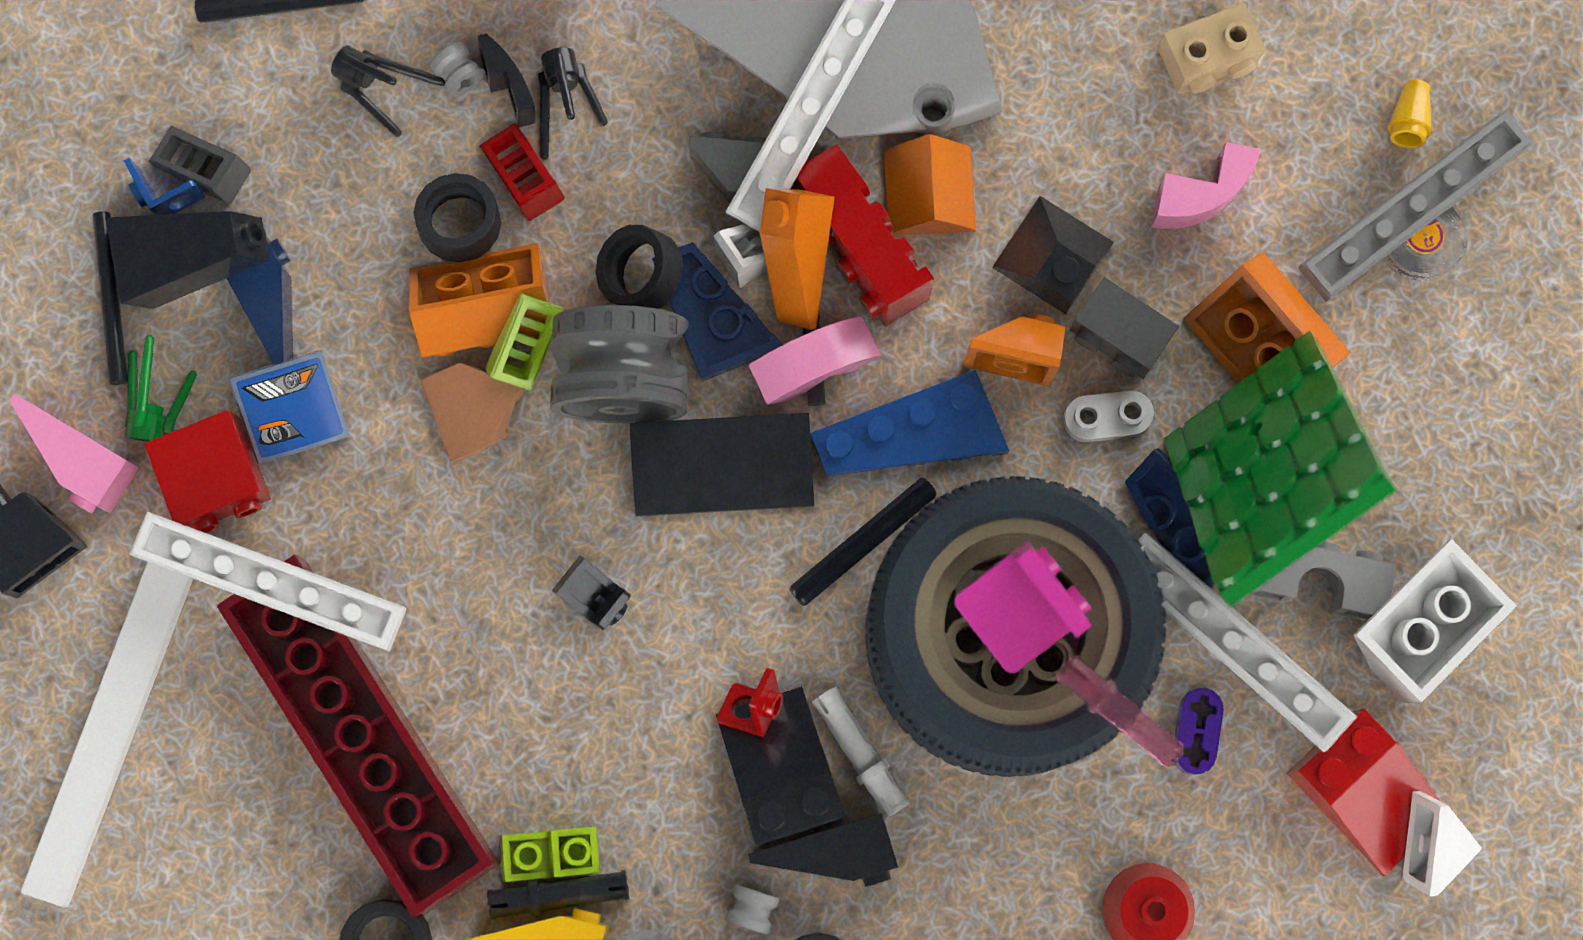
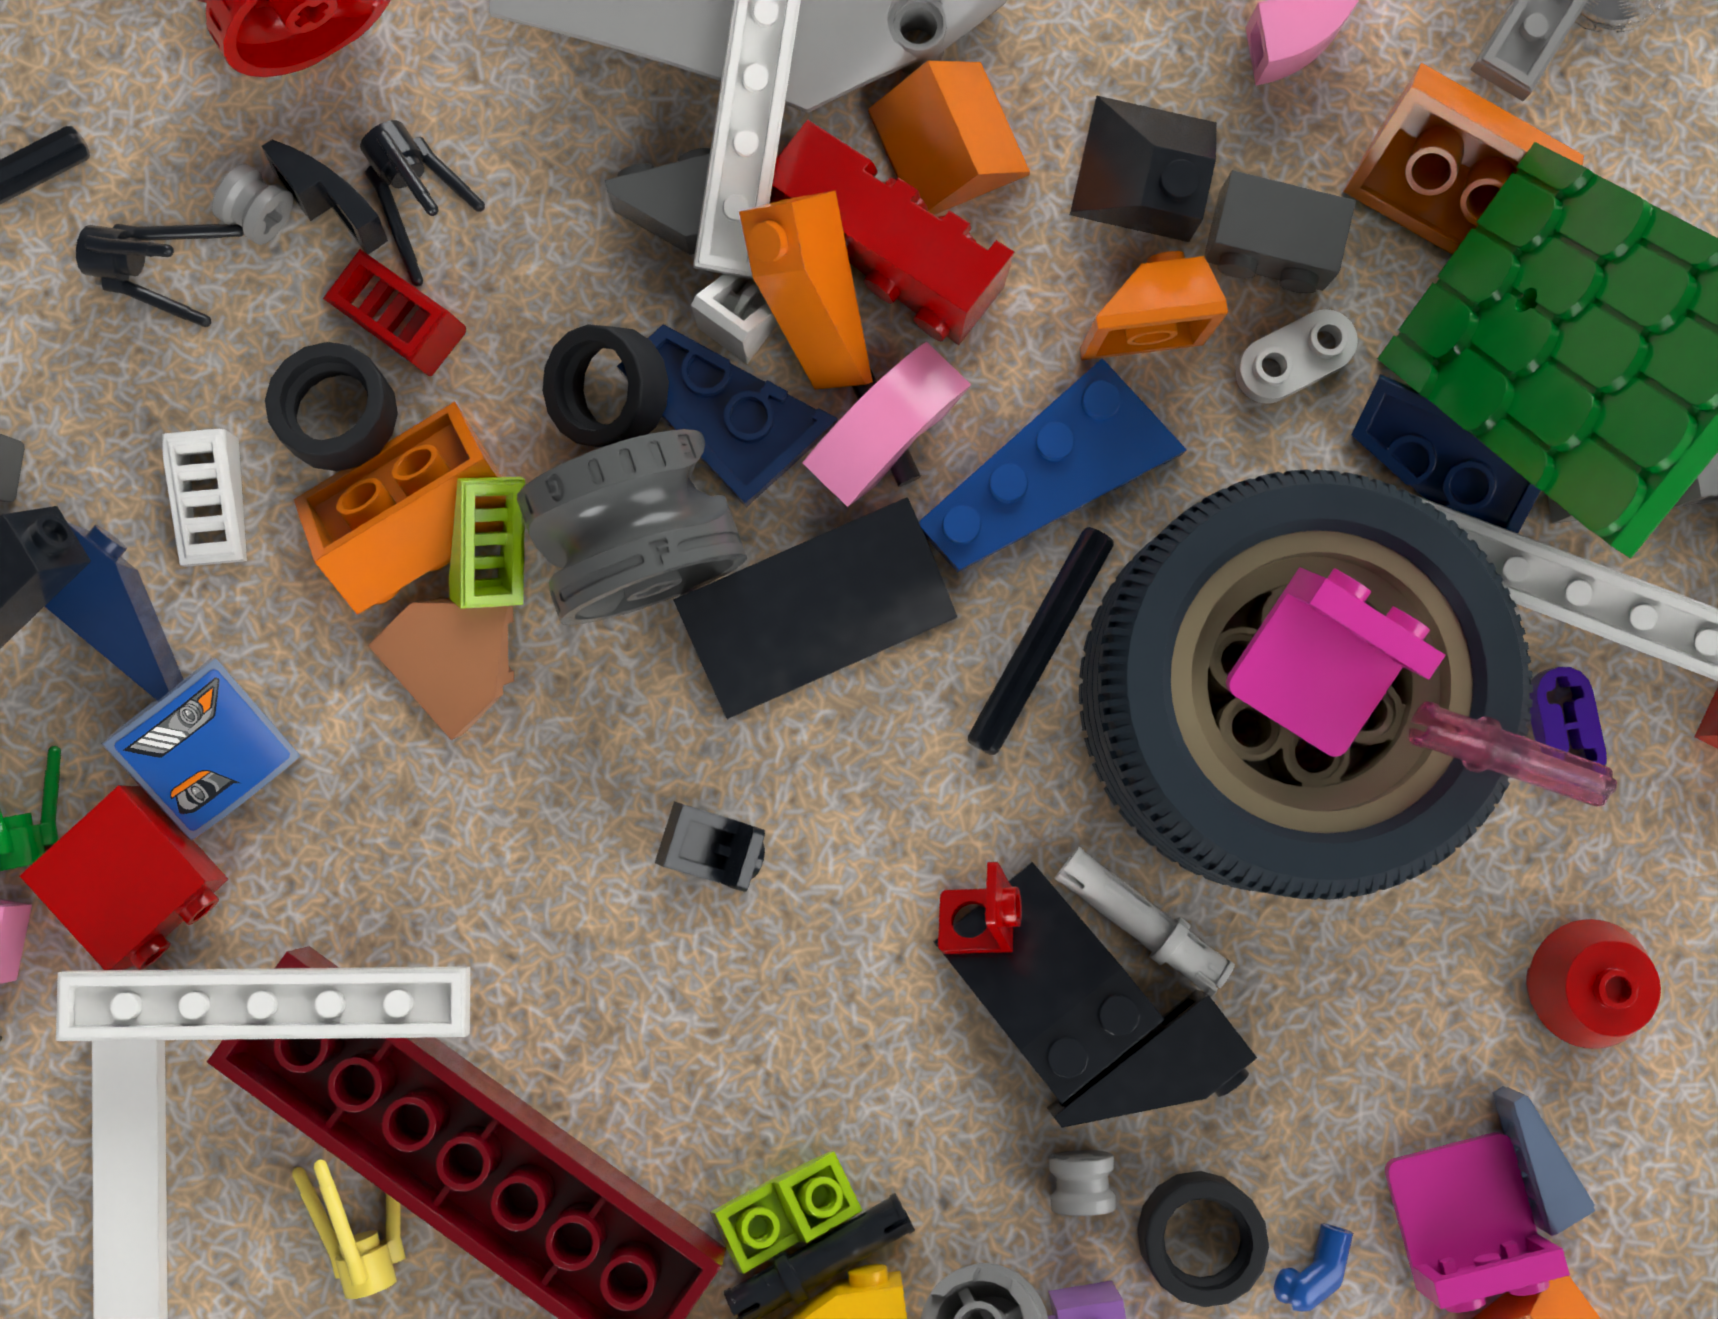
camera: 30 degrees left, 5 degrees up
(258, 776) = (357, 1259): none -> light yellow plant
(373, 233) = (227, 470): none -> white slope

